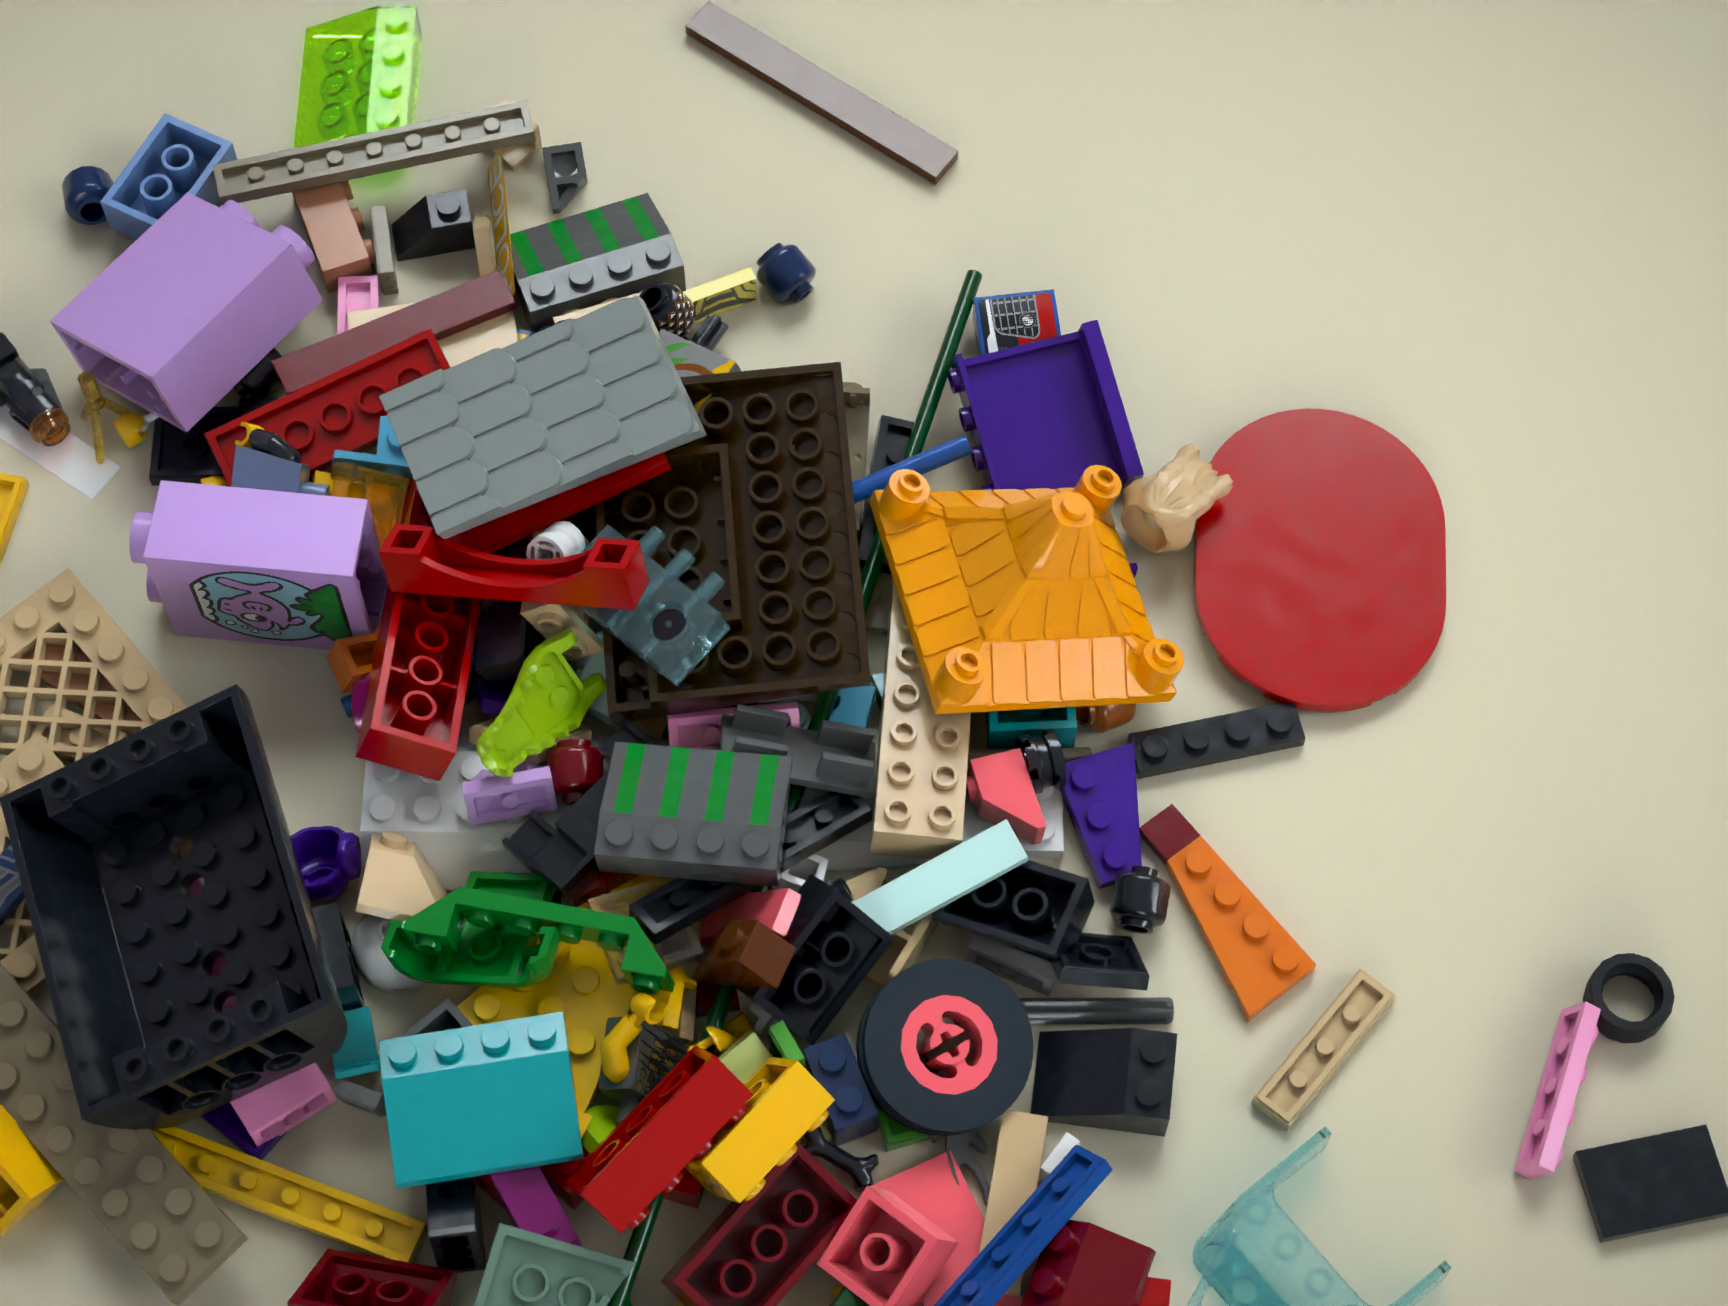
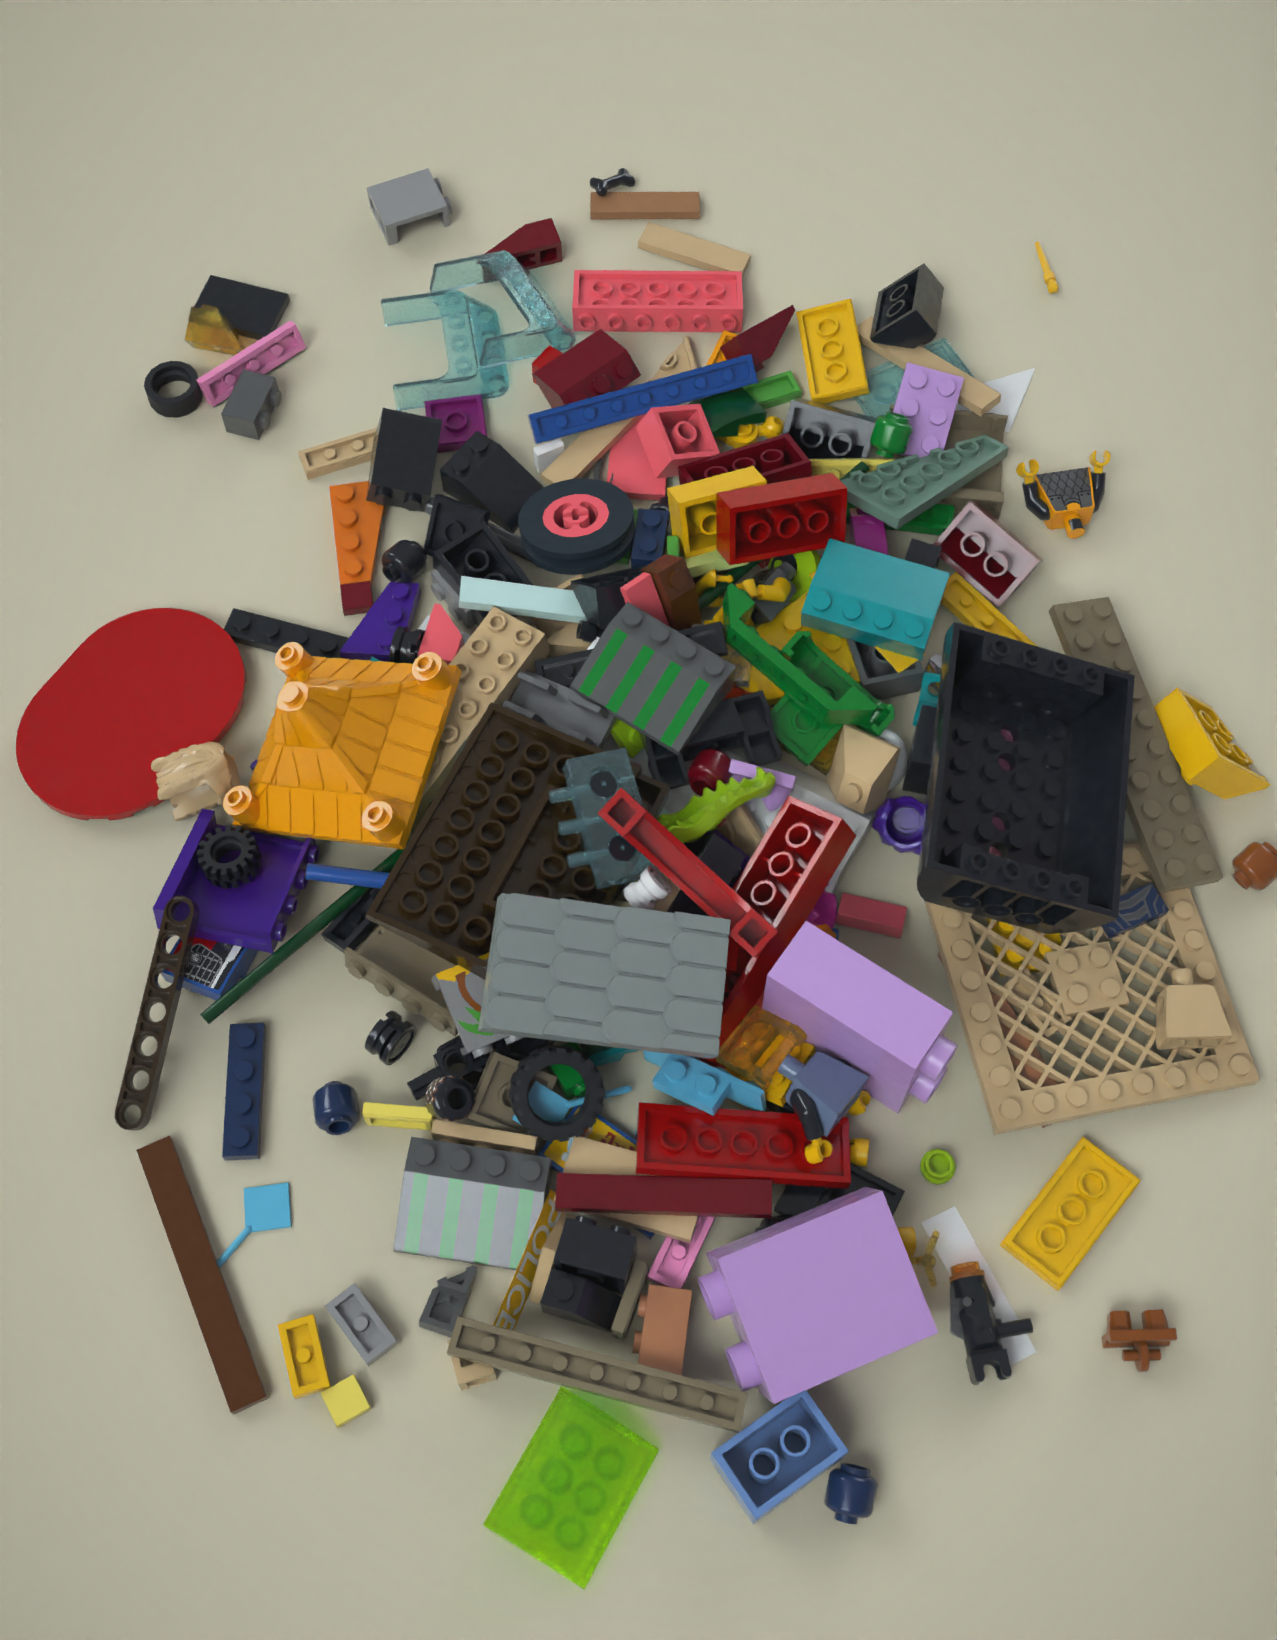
camera: 150 degrees left, 0 degrees up
(119, 517) = (937, 1166): none -> lime plate
(315, 751) = (871, 915): none -> coral slope
(432, 252) = (597, 1253): none -> black brick
(610, 59) = (345, 1401): none -> light yellow tile
(634, 116) = (361, 1324): none -> light grey plate
(671, 69) = (304, 1356): none -> yellow plate
(773, 349) = (390, 1038): none -> black wheel
(799, 170) = (265, 1209): none -> medium azure piece
(894, 254) = (244, 1091): none -> dark blue plate
(1026, 267) = (145, 1025): none -> dark brown beam
(1080, 416) = (235, 870): none -> black tyre
(1220, 1156) = (459, 418): none -> magenta tile
(1234, 1024) = (403, 460): none -> black slope
(1507, 1027) = (251, 404): none -> dark grey brick
(1640, 1105) = (212, 331): none -> clear yellow slope

